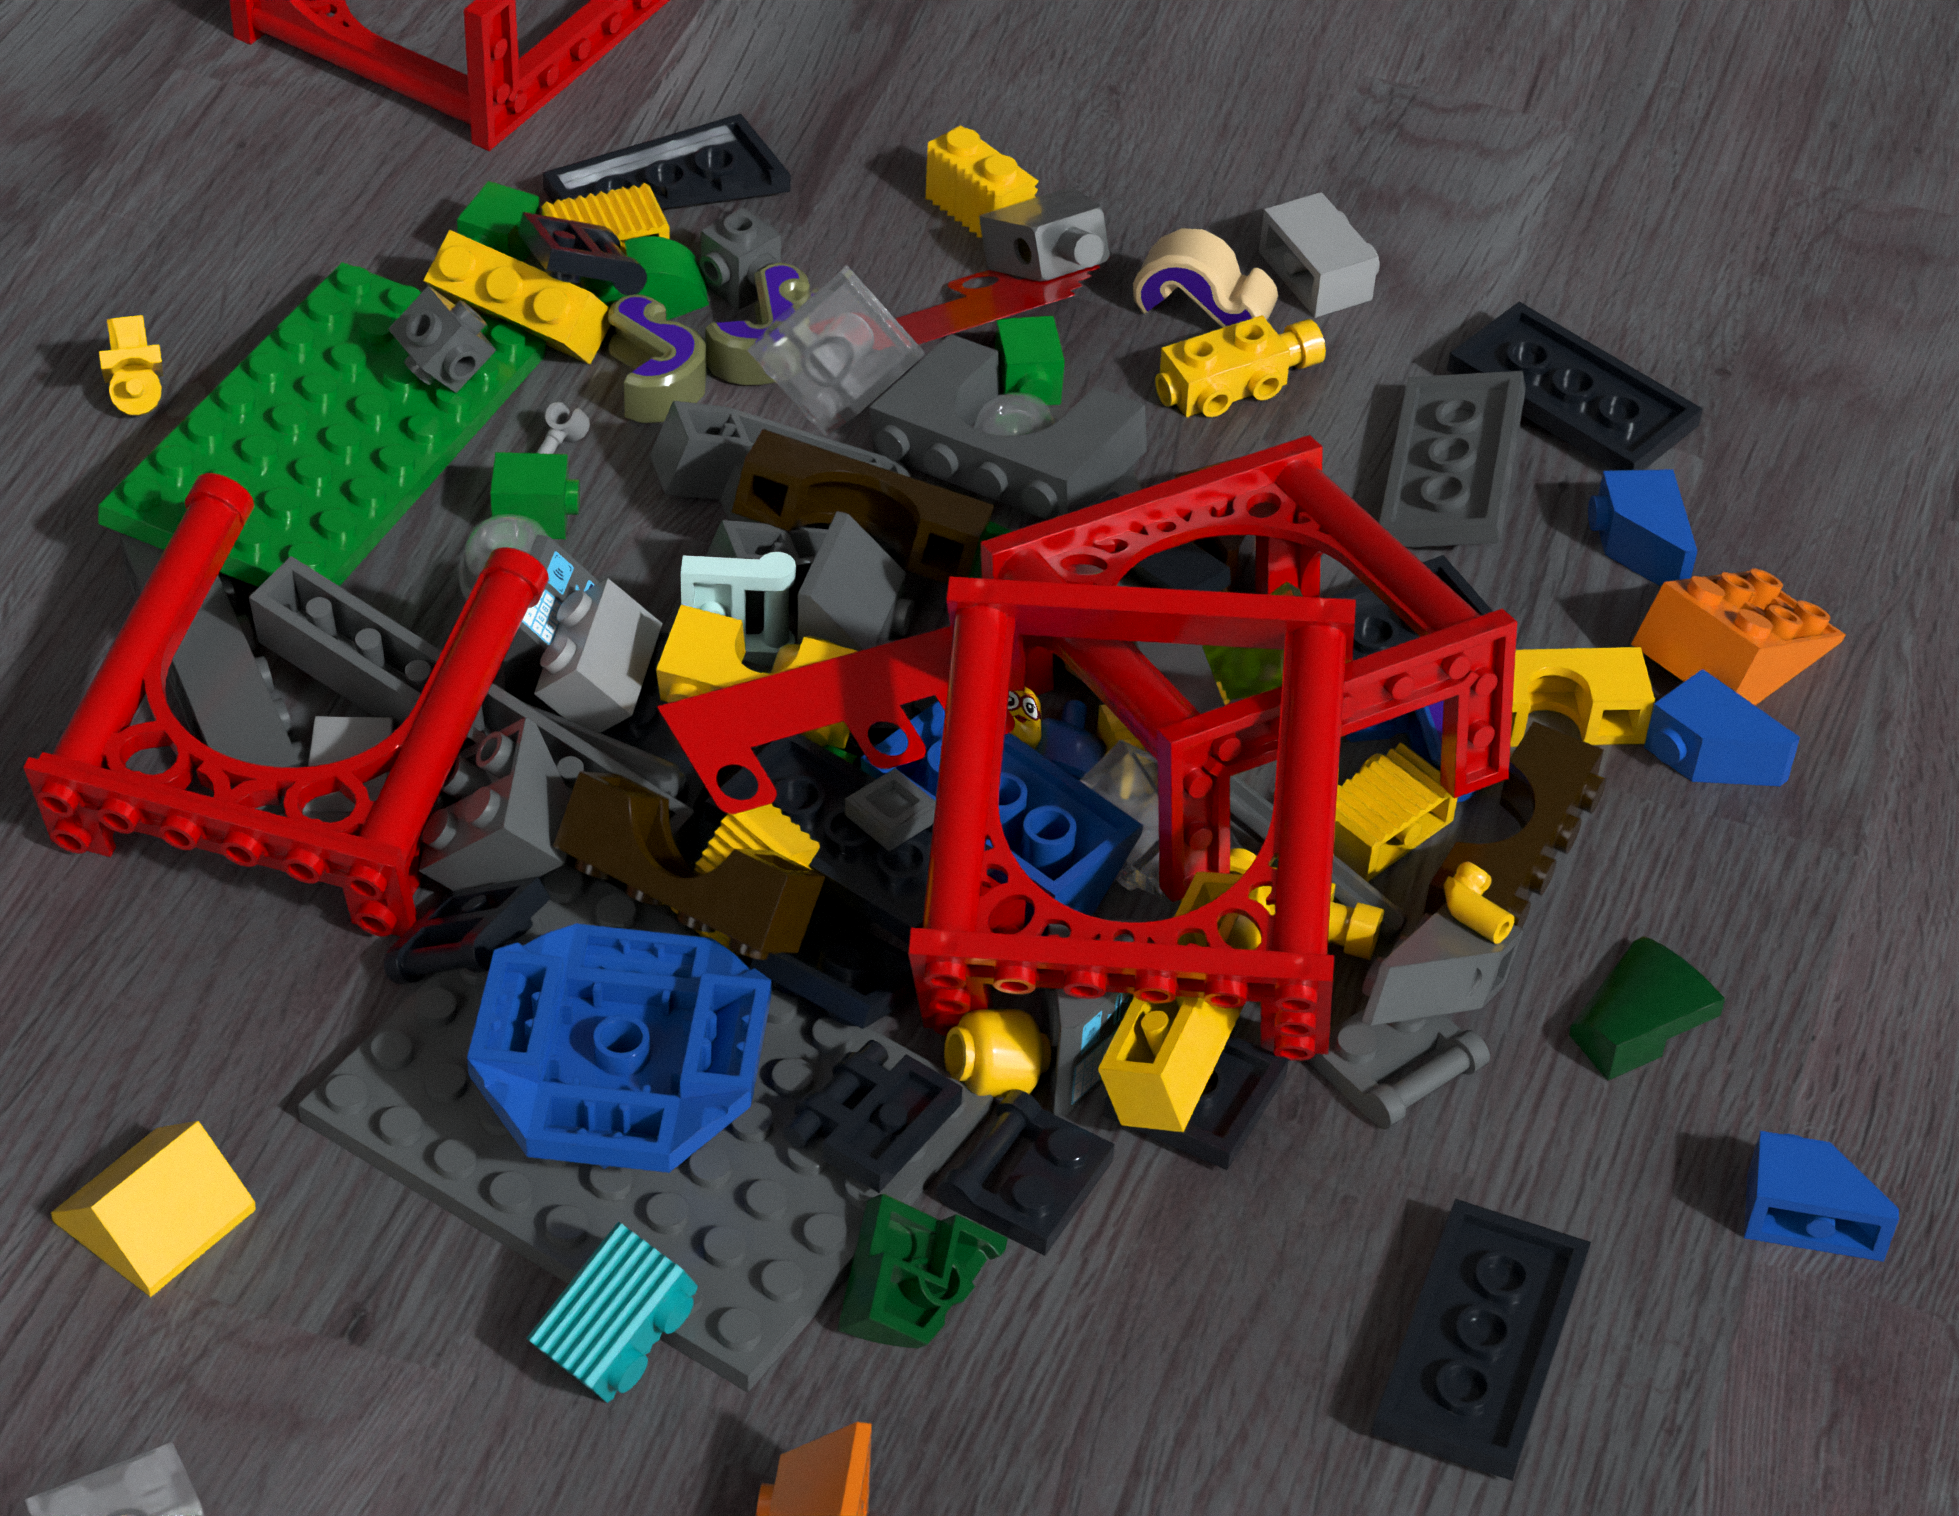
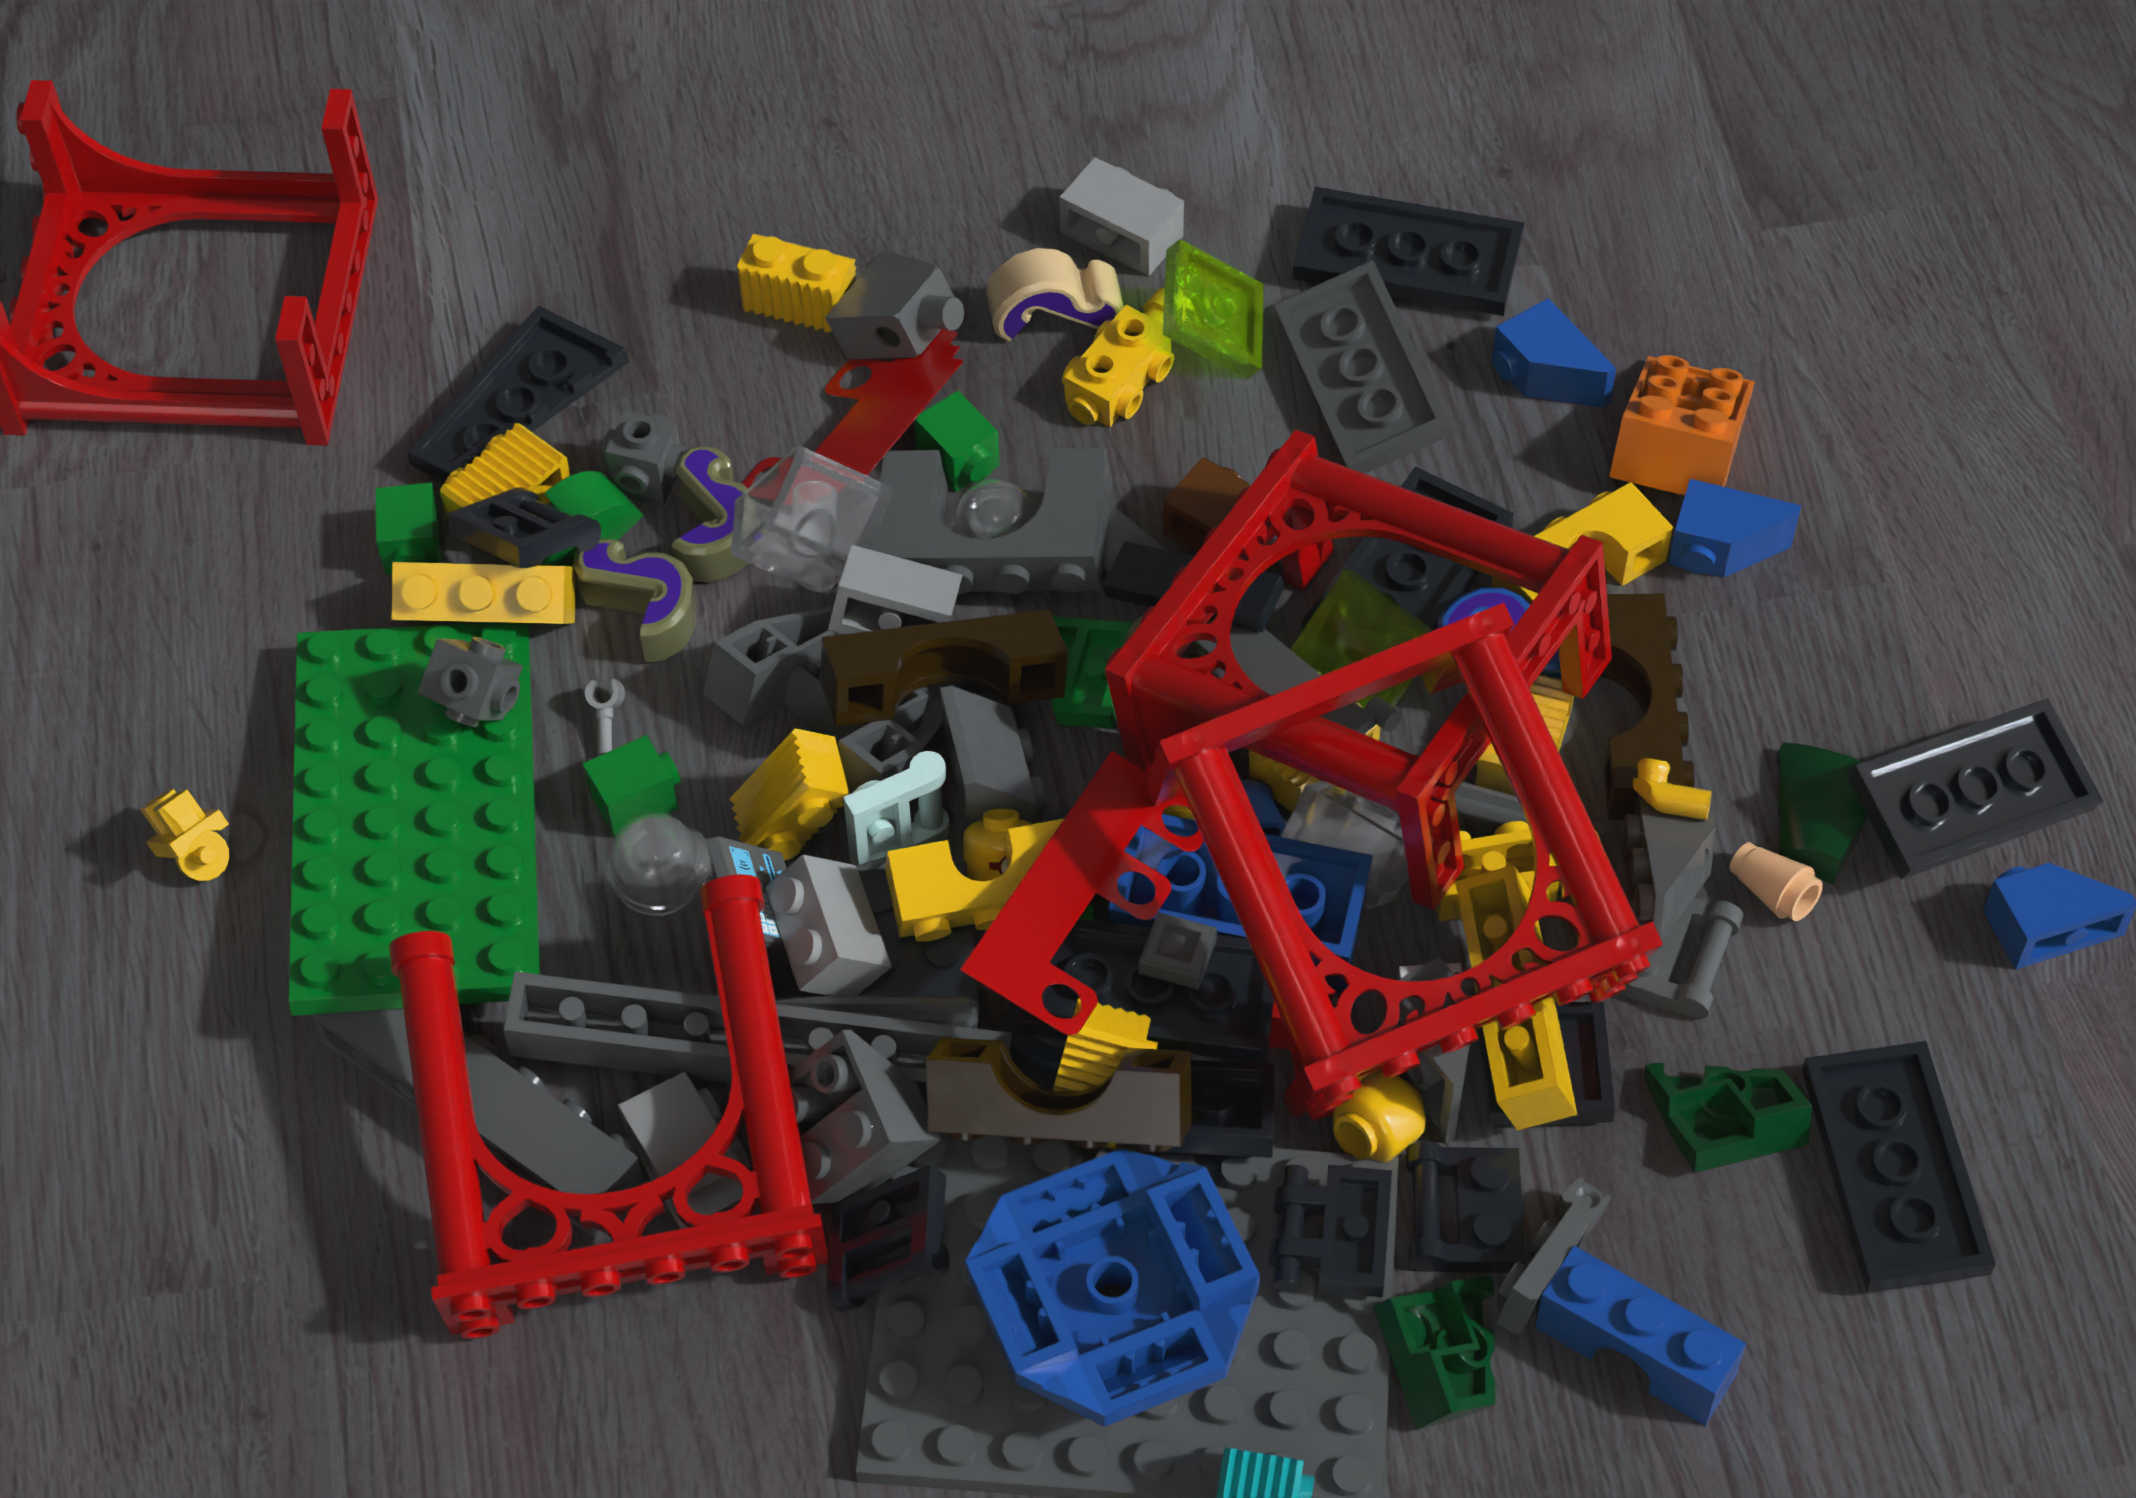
camera: 25 degrees left, 10 degrees up
(649, 550) = (791, 793): none -> yellow brick
(866, 430) = (890, 593): none -> light grey brick
(1071, 1243) = (1577, 1213): none -> dark grey hinge
(1133, 1382) = (1680, 1352): none -> blue arch
(1343, 353) = (1213, 309): none -> clear neon green plate
(1350, 1218) = (1730, 1113): none -> dark green slope
(1546, 1045) = (1777, 881): none -> light nougat cone
(1803, 1049) = (1974, 788): none -> black plate

